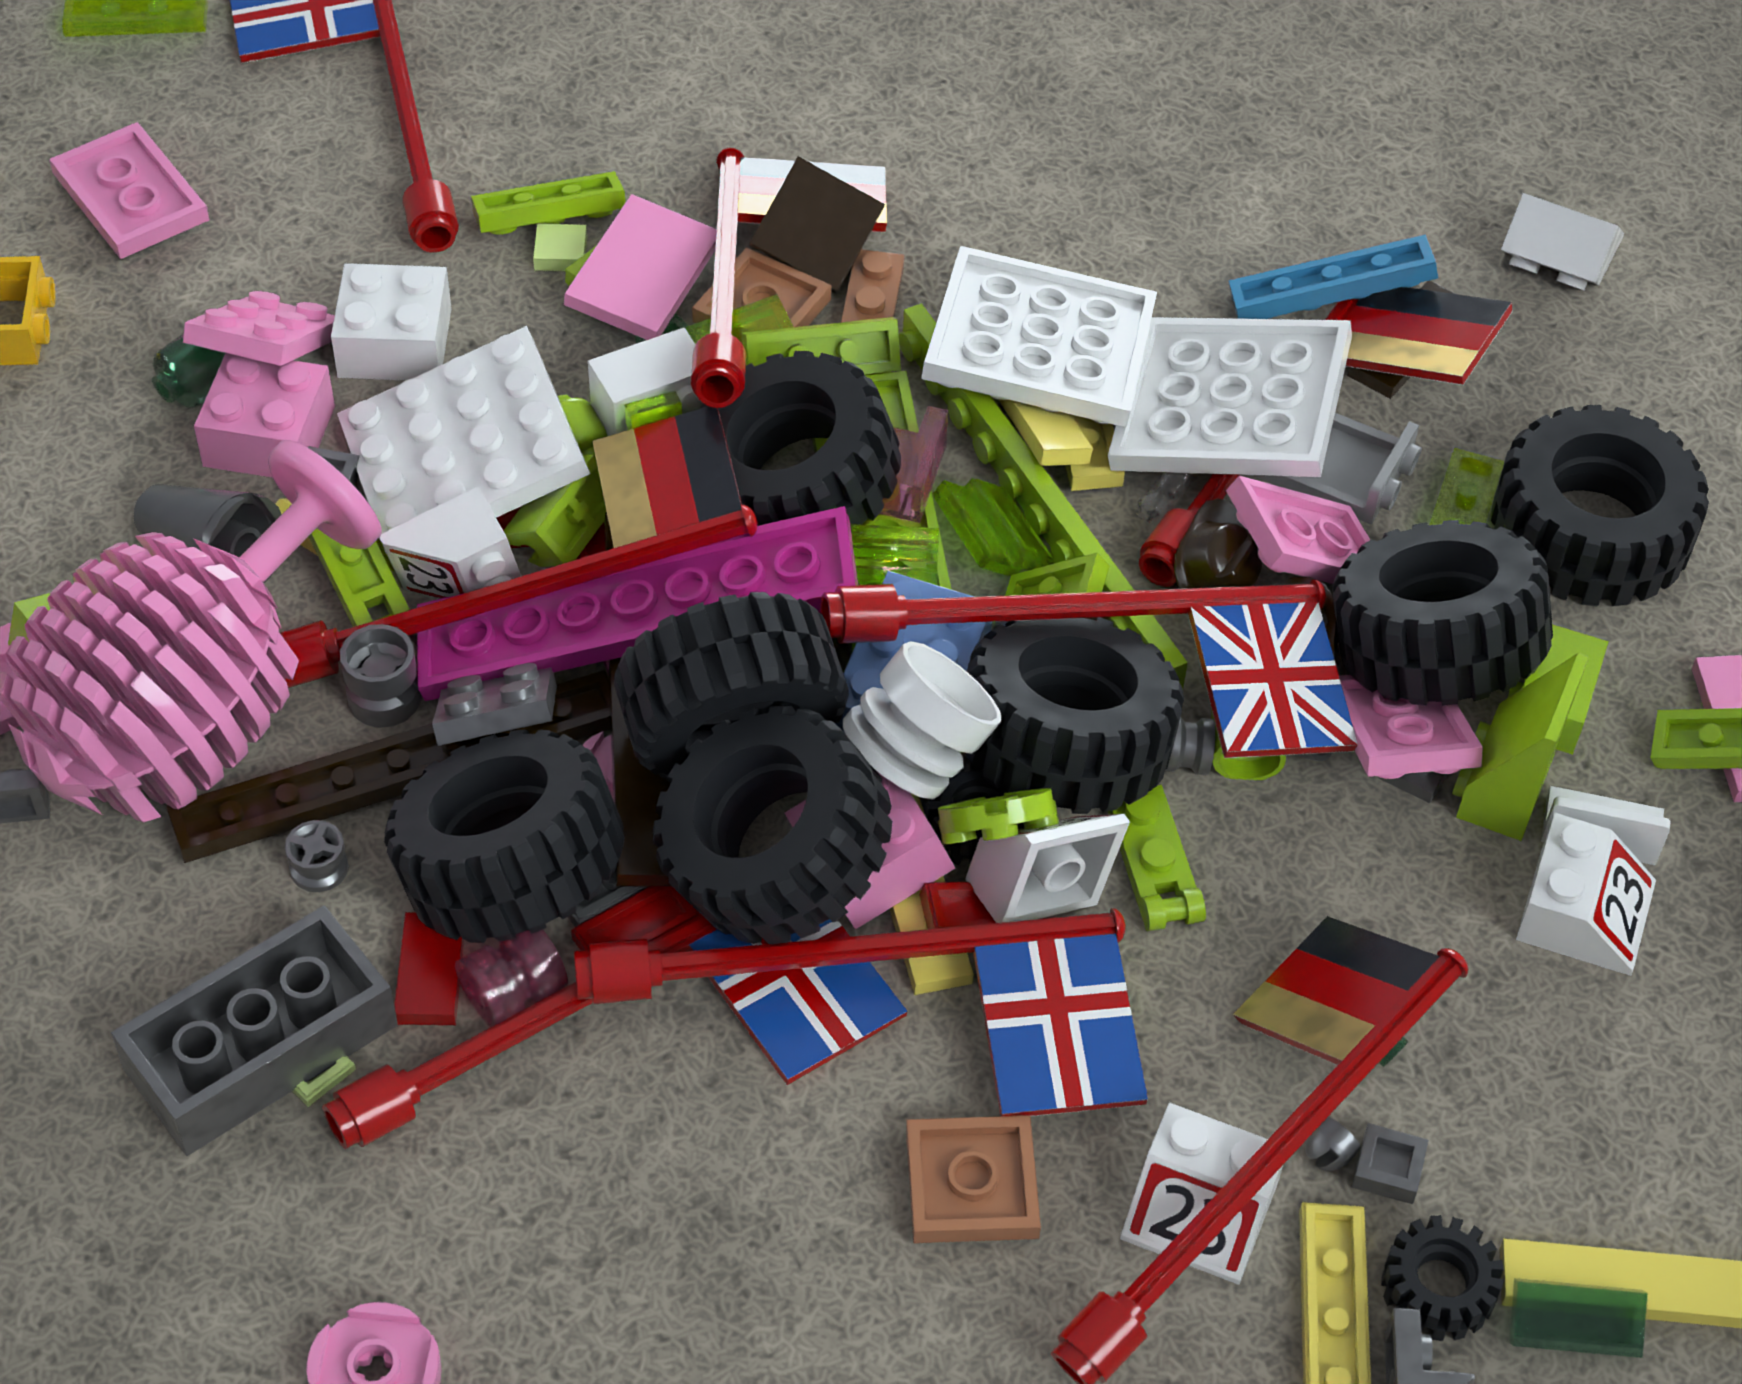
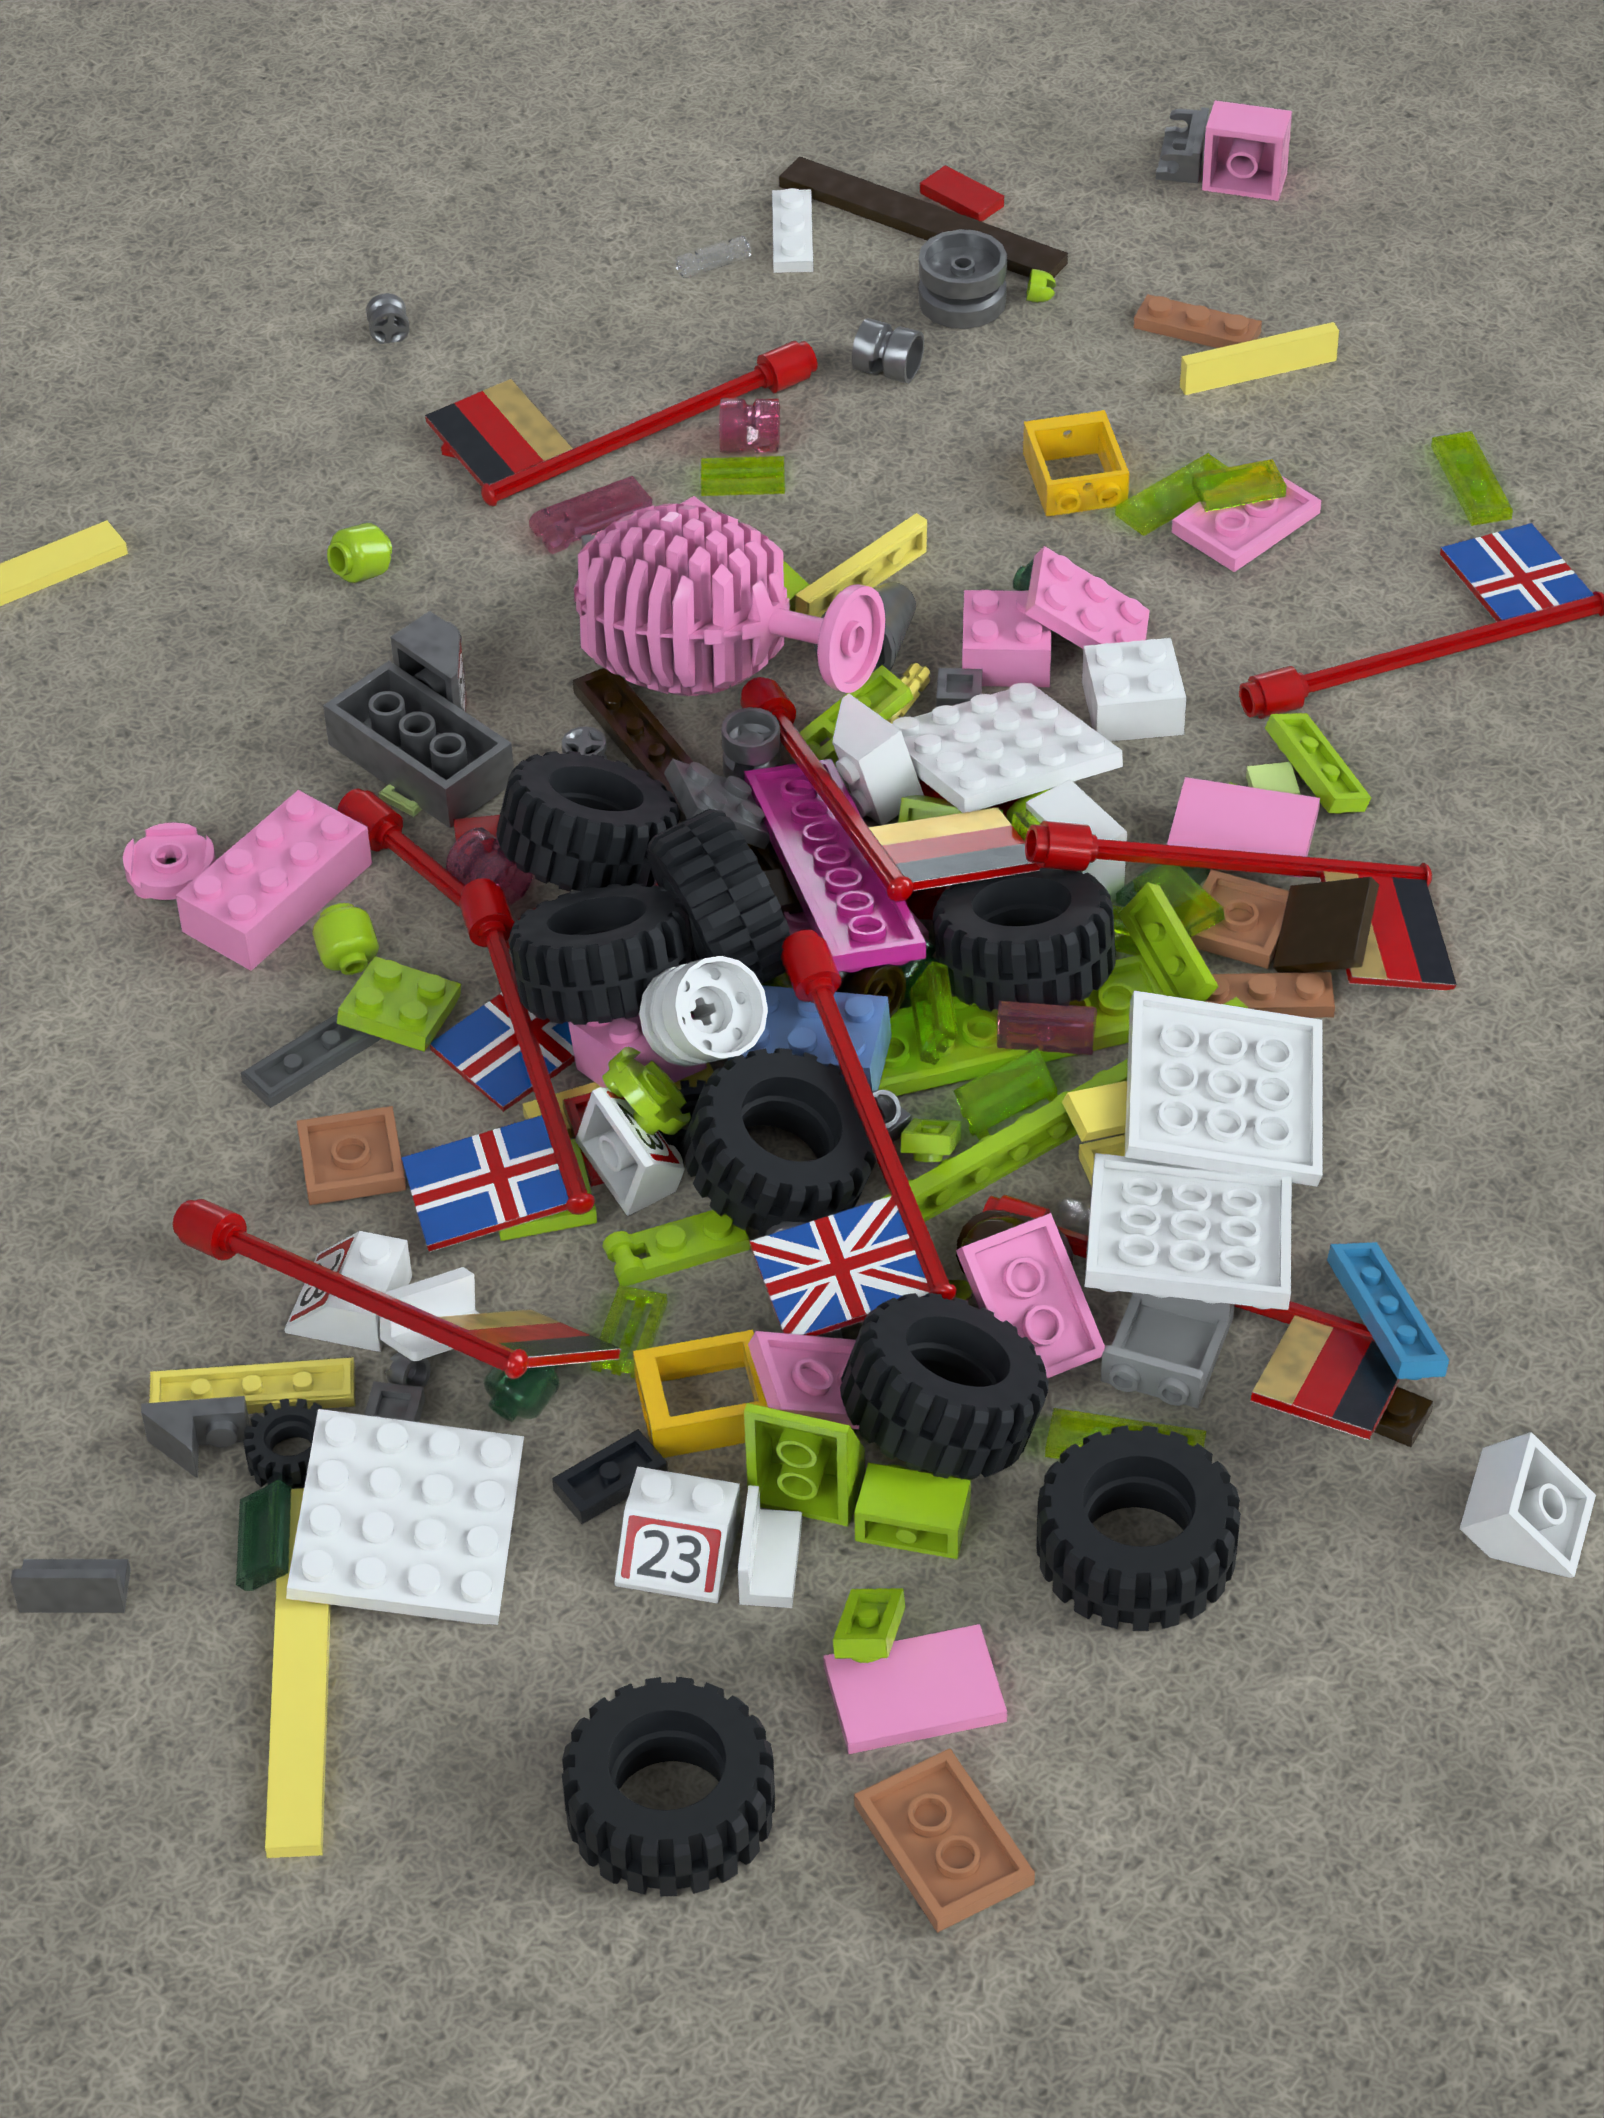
camera: 85 degrees right, 5 degrees down
(54, 238) = (1165, 498): none -> clear neon green tile
(68, 505) = (867, 566): none -> light yellow tile
(91, 177) = (1239, 485): none -> clear neon green tile
(131, 972) = (433, 655): none -> flat silver slope
(463, 1228) = (274, 879): none -> bright pink brick
(592, 1152) = (345, 938): none -> lime head
(721, 1102) = (399, 1003): none -> lime plate
(778, 1218) = (305, 1060): none -> dark grey tile
(1267, 1089) = (439, 1295): none -> white panel
(1268, 926) = (647, 1338): none -> clear neon green tile
(1374, 897) = (699, 1429): none -> yellow window
(1497, 954) = (606, 1476): none -> black plate
(1564, 1158) = (406, 1518): none -> white plate

